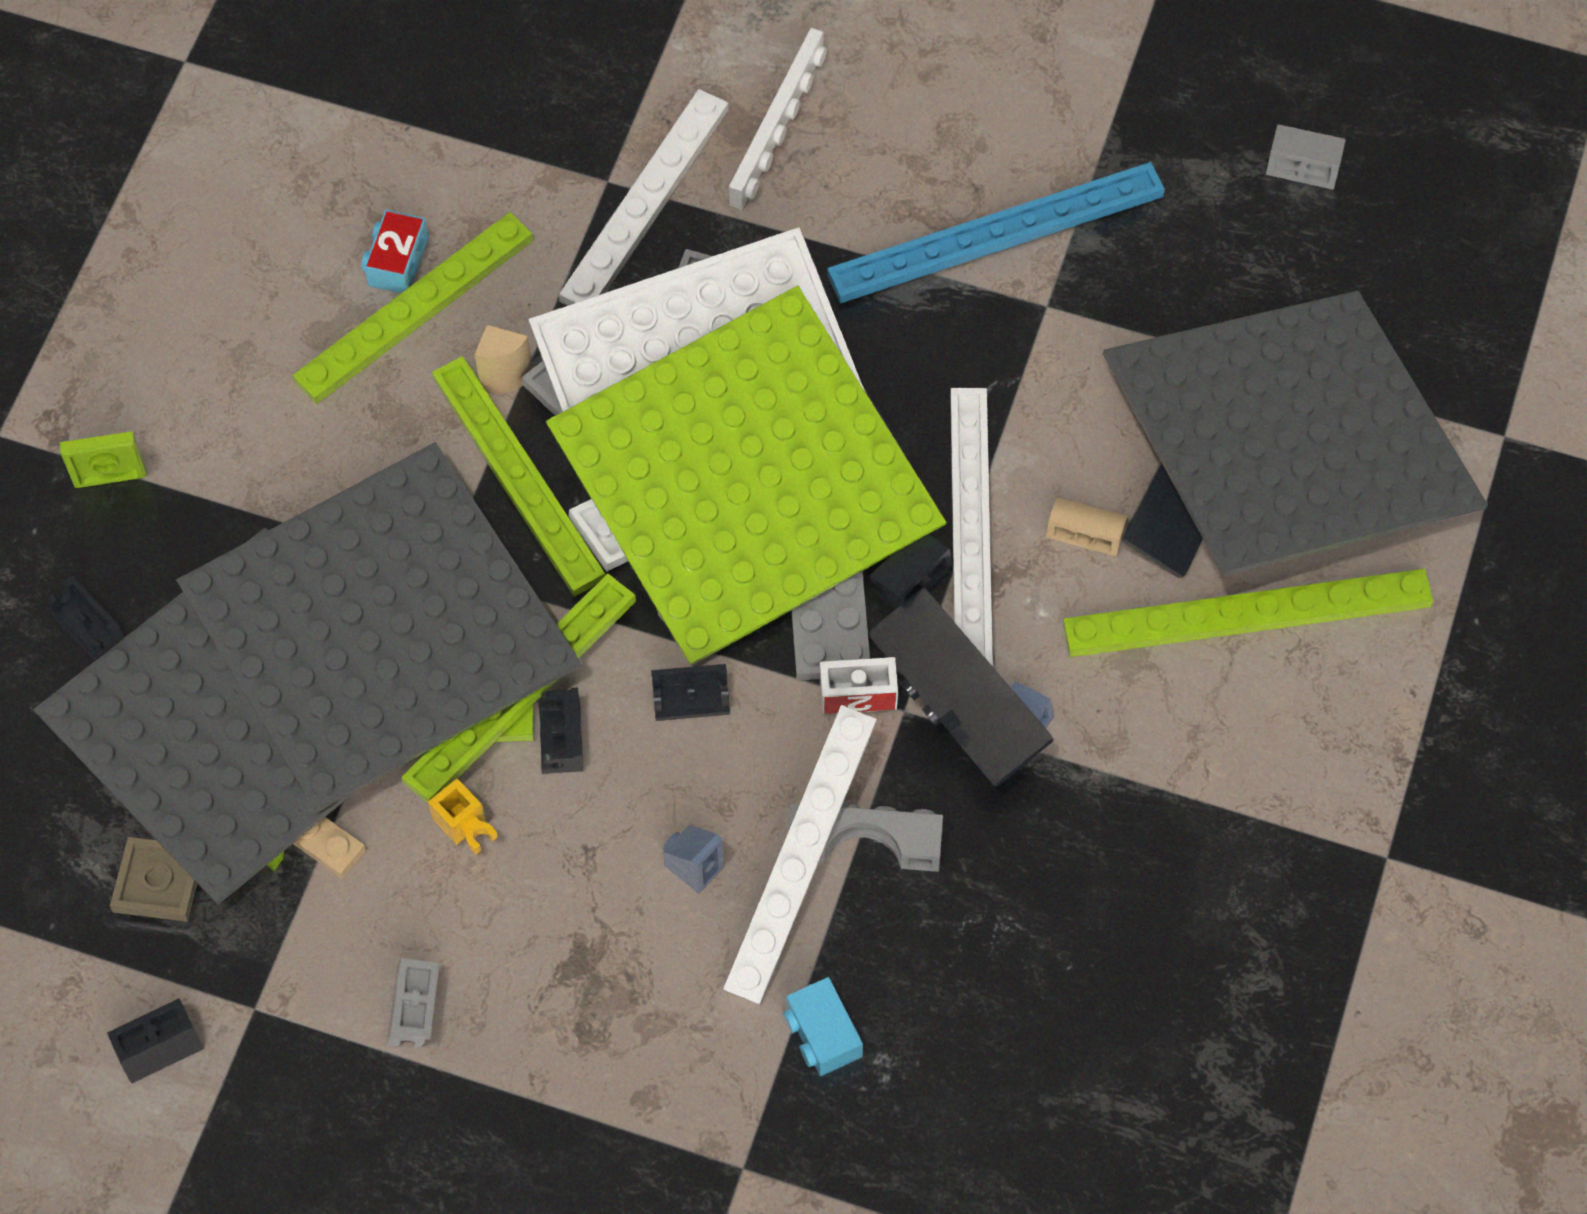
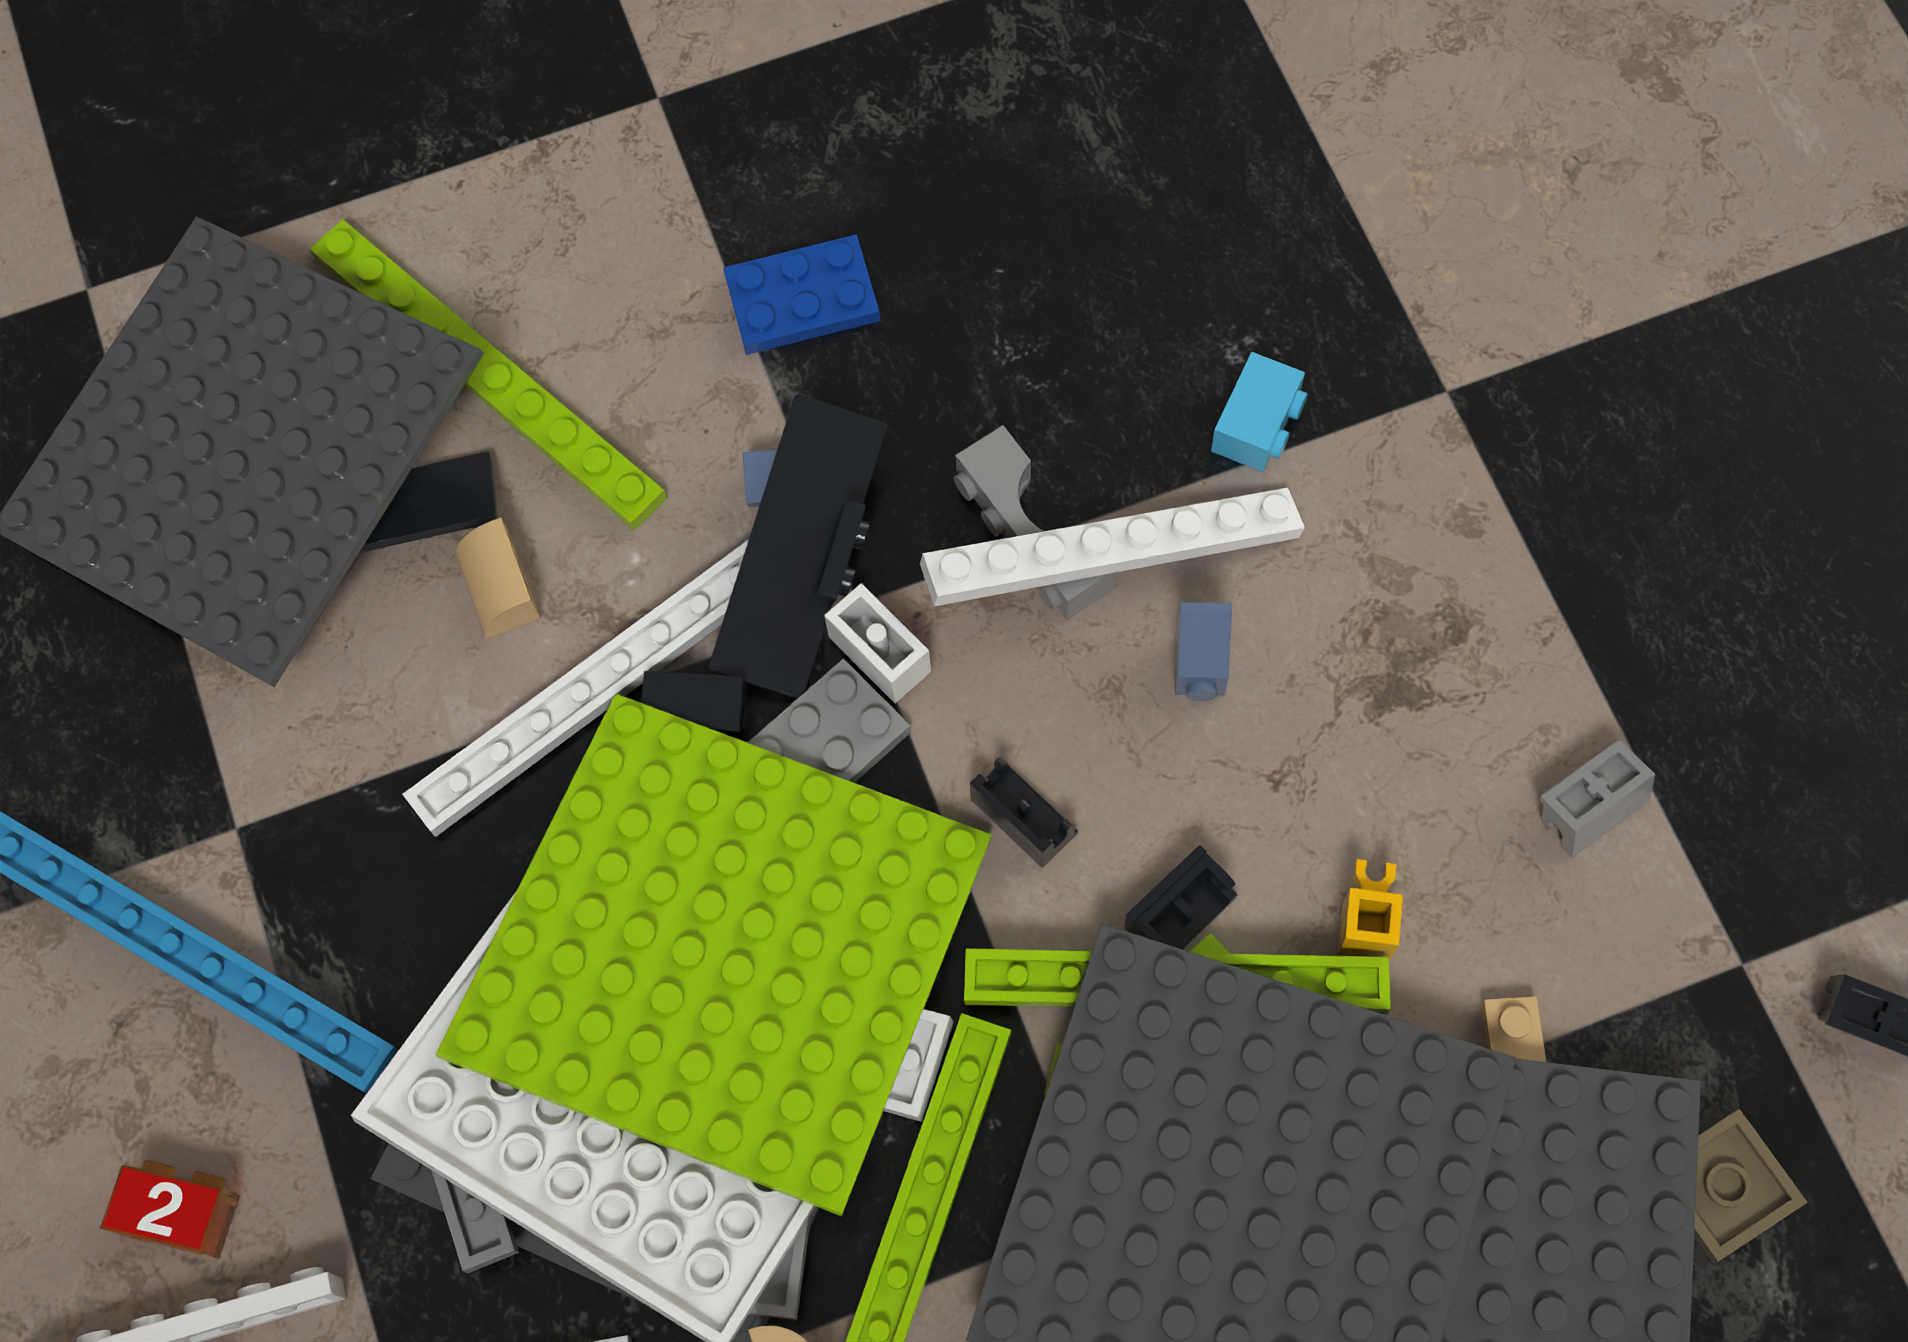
camera: 125 degrees left, 5 degrees up
(843, 149) = (171, 1210): none -> brick
(1149, 831) = (801, 294): none -> blue plate

